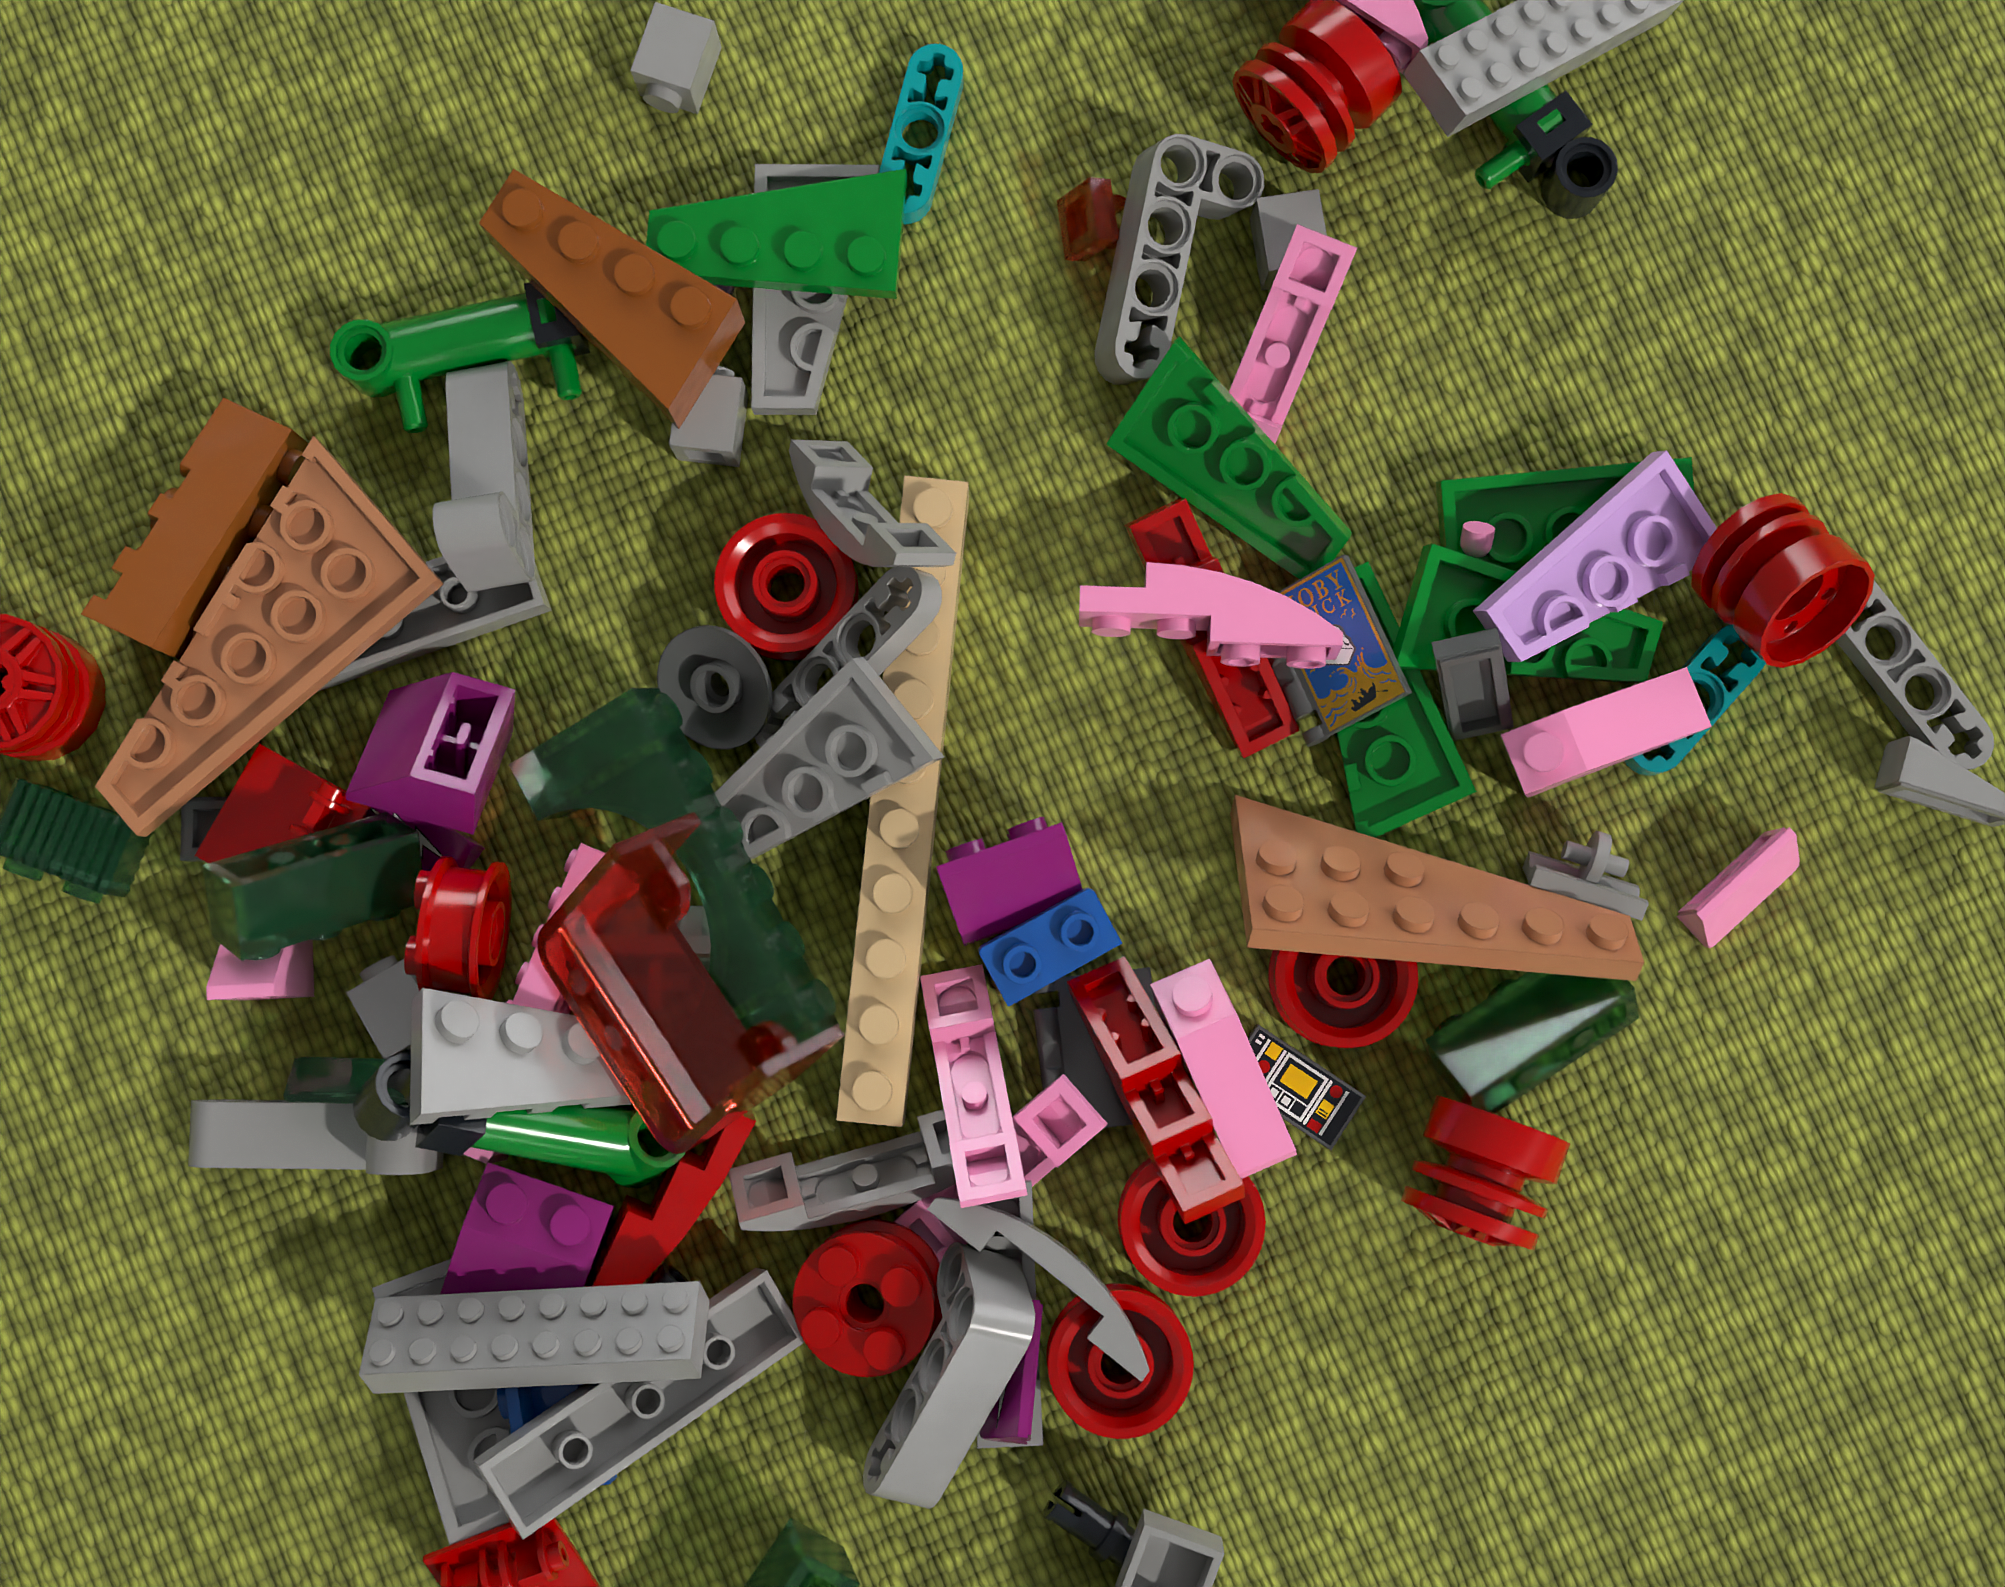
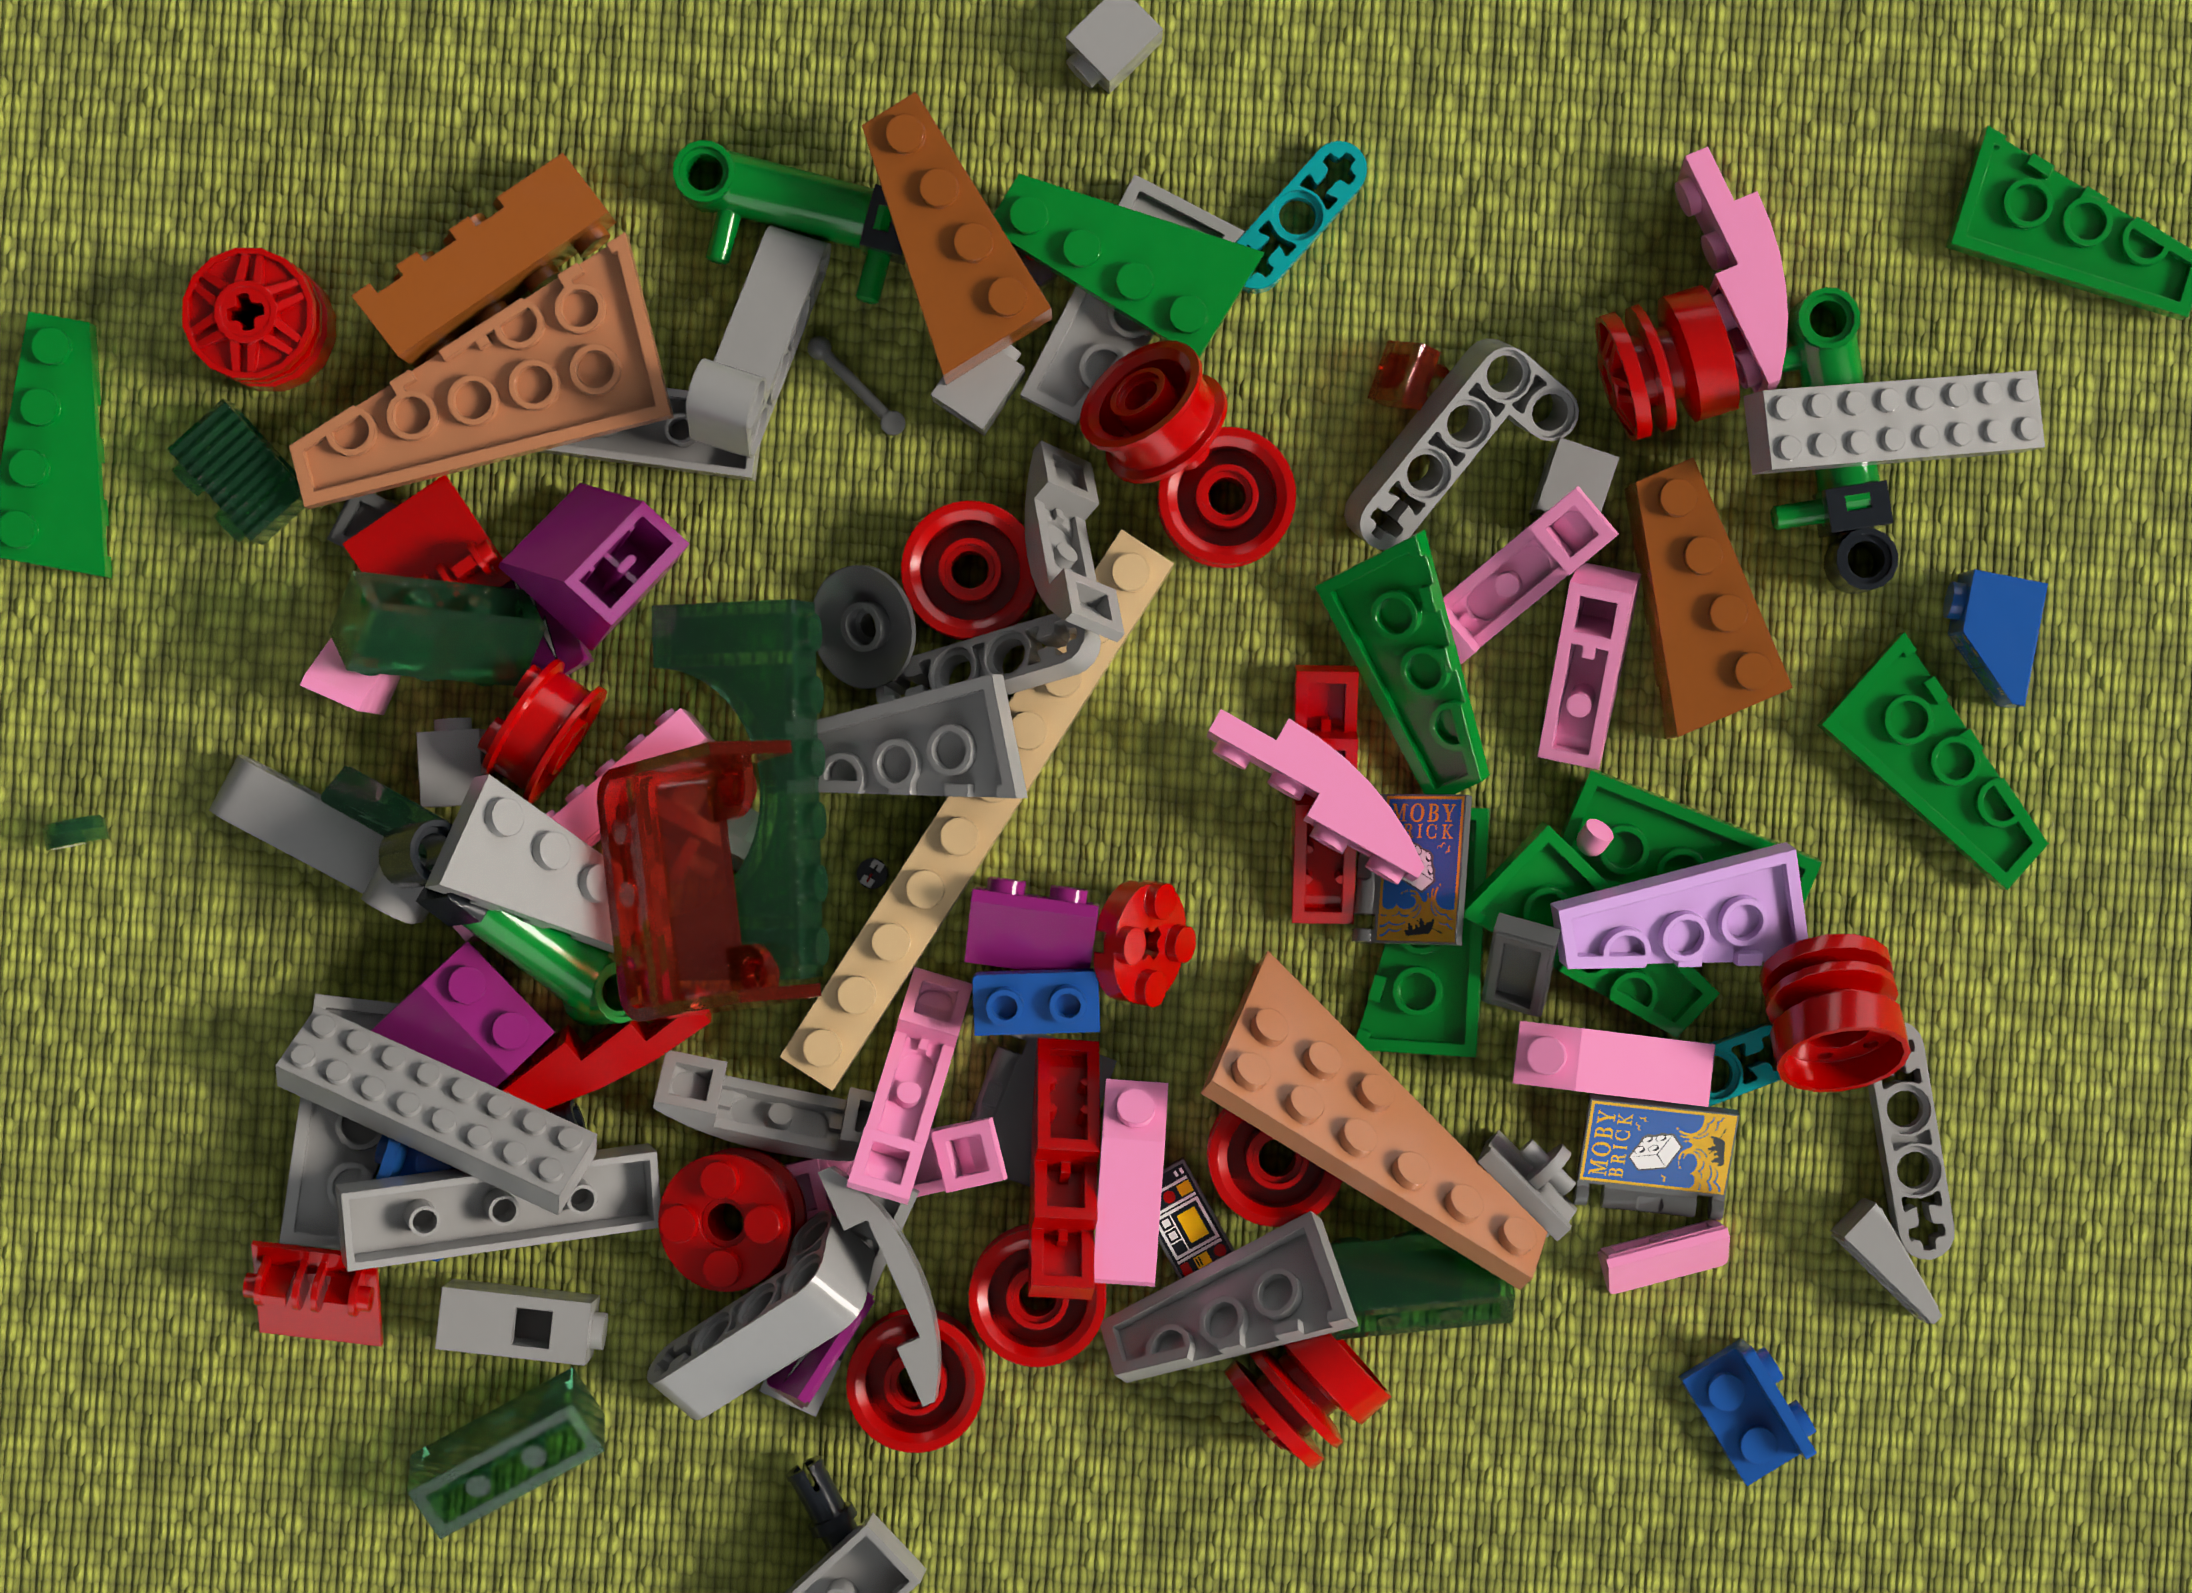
camera: 30 degrees right, 5 degrees up
(72, 1252) = (75, 832): none -> clear green tile
(649, 494) = (891, 421): none -> dark grey hinge
(719, 1501) = (520, 1322): none -> light grey brick
(837, 910) = (872, 873): none -> black piece
(881, 356) = (1154, 412): none -> red wheel
(978, 365) = (1239, 537): none -> red wheel
(1118, 841) = (1142, 942): none -> red plate
(1385, 1128) = (1243, 1303): none -> light grey wing
(1389, 390) = (1588, 664): none -> bright pink slope
(1456, 284) = (1699, 608): none -> dark orange wedge
(1685, 798) = (1655, 1155): none -> piece
(1717, 317) = (1920, 750): none -> green wing
(1732, 178) = (1996, 630): none -> blue slope
(1895, 987) = (1747, 1411): none -> blue bracket

